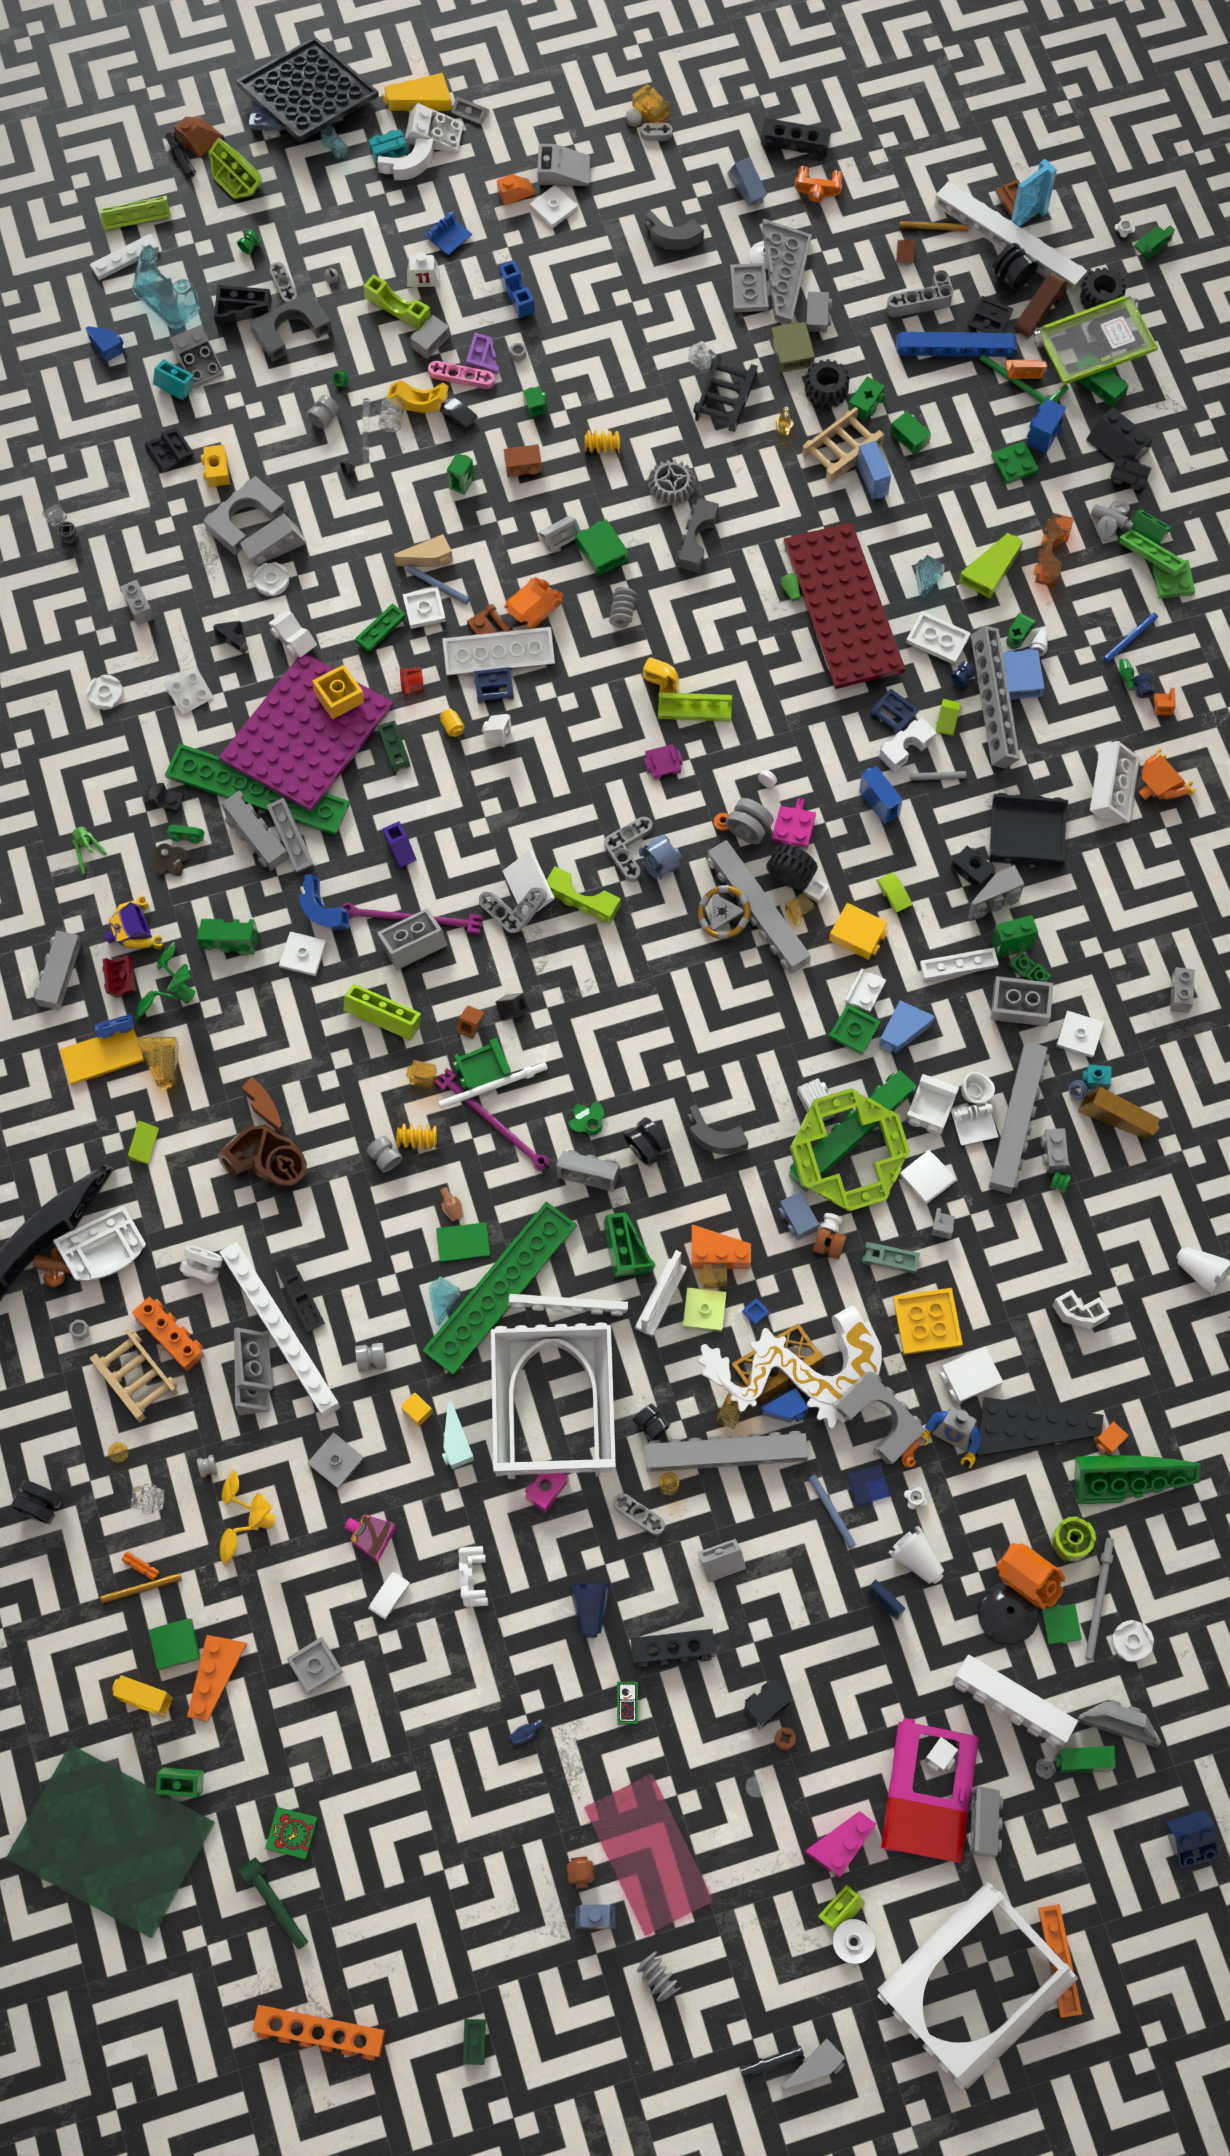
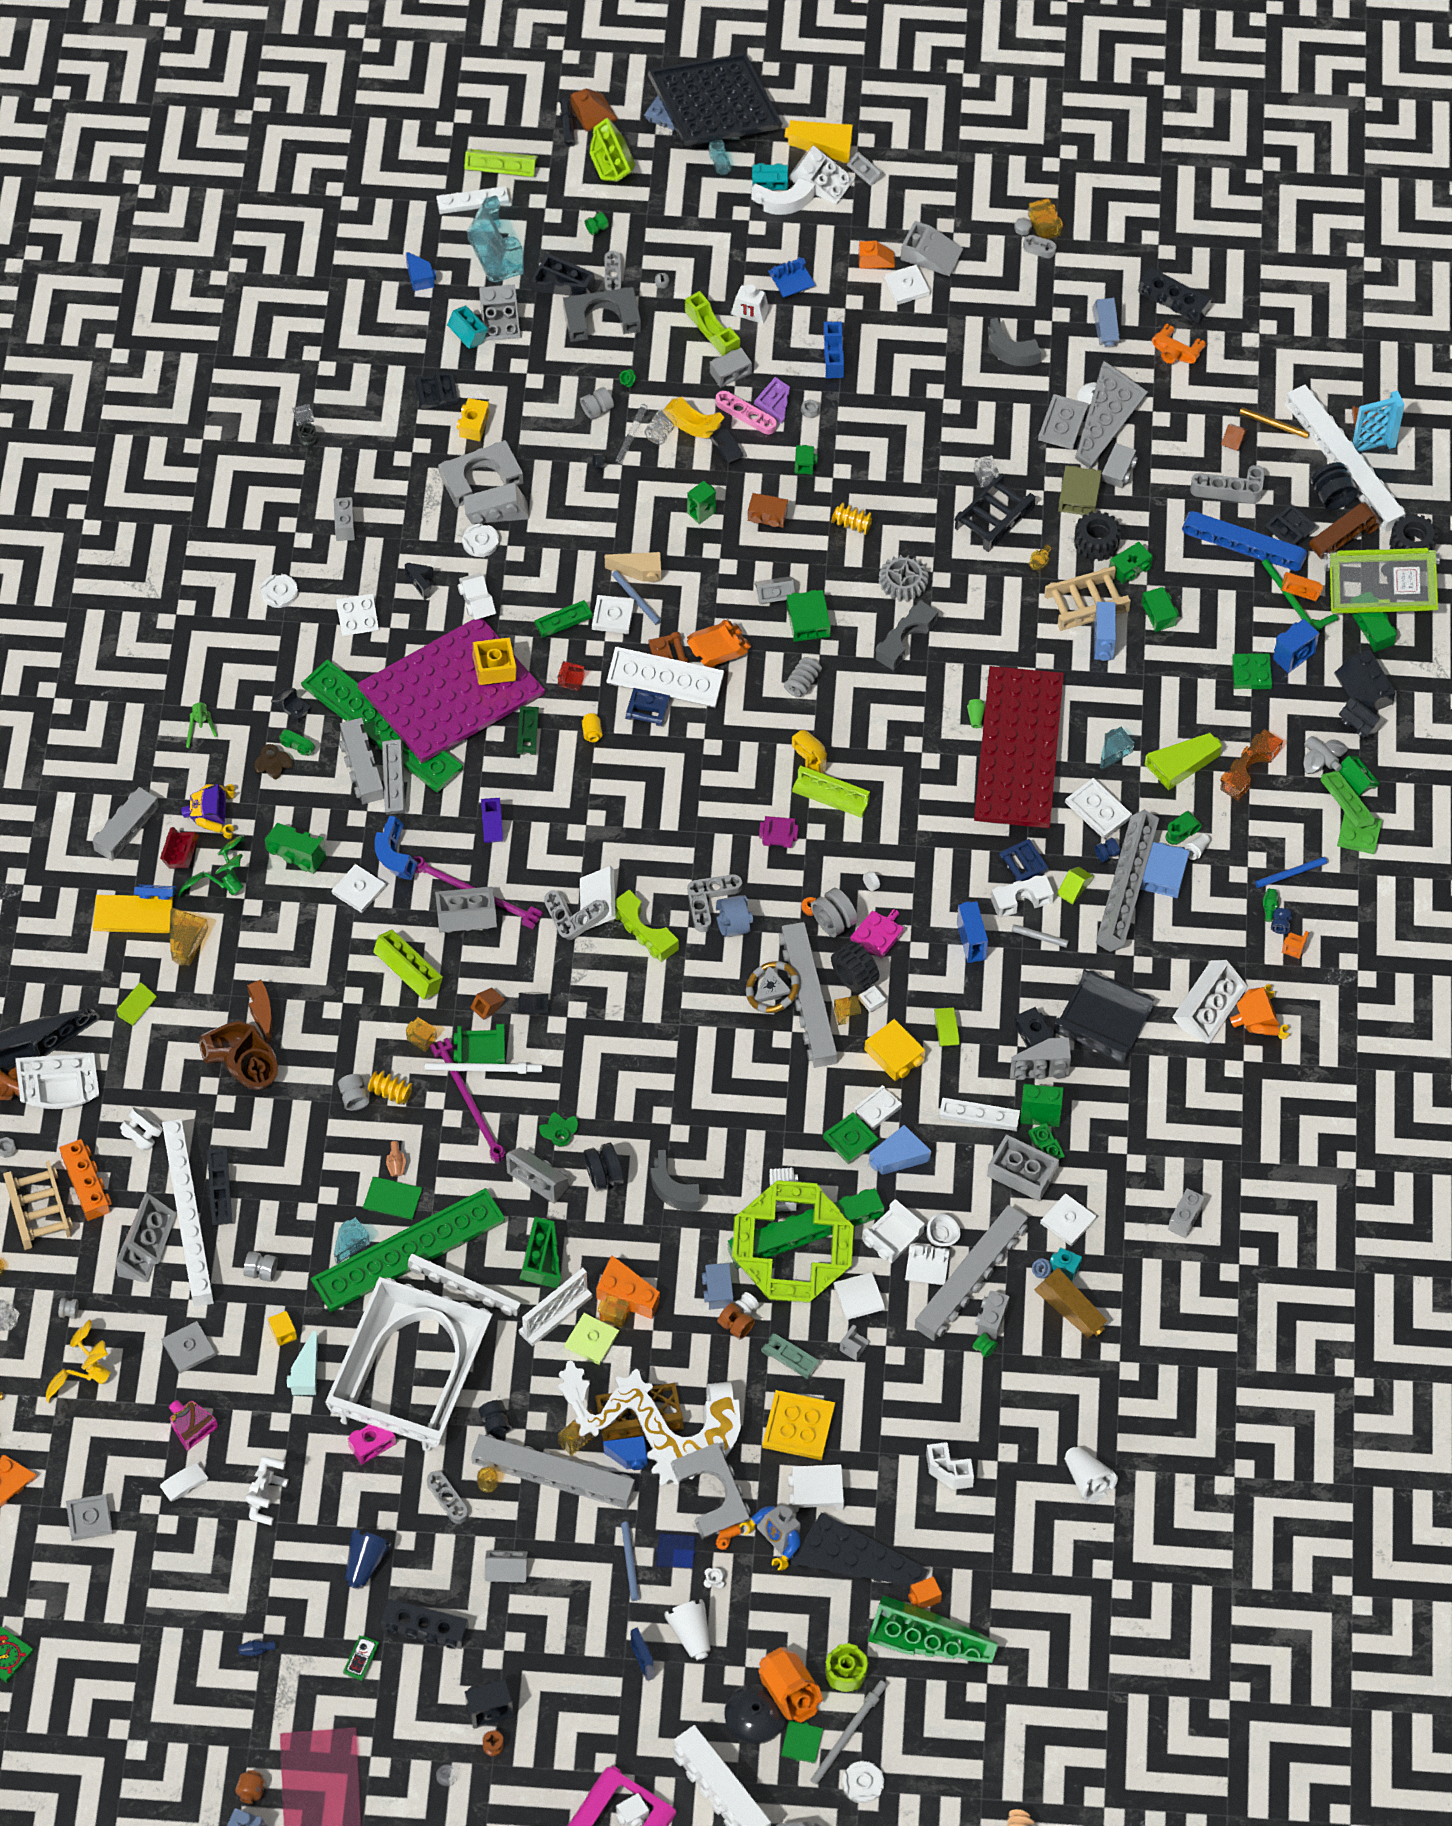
camera: 20 degrees right, 10 degrees down
(497, 729) = (632, 748): white slope -> none
(755, 1312) = (639, 1358): blue tile -> none

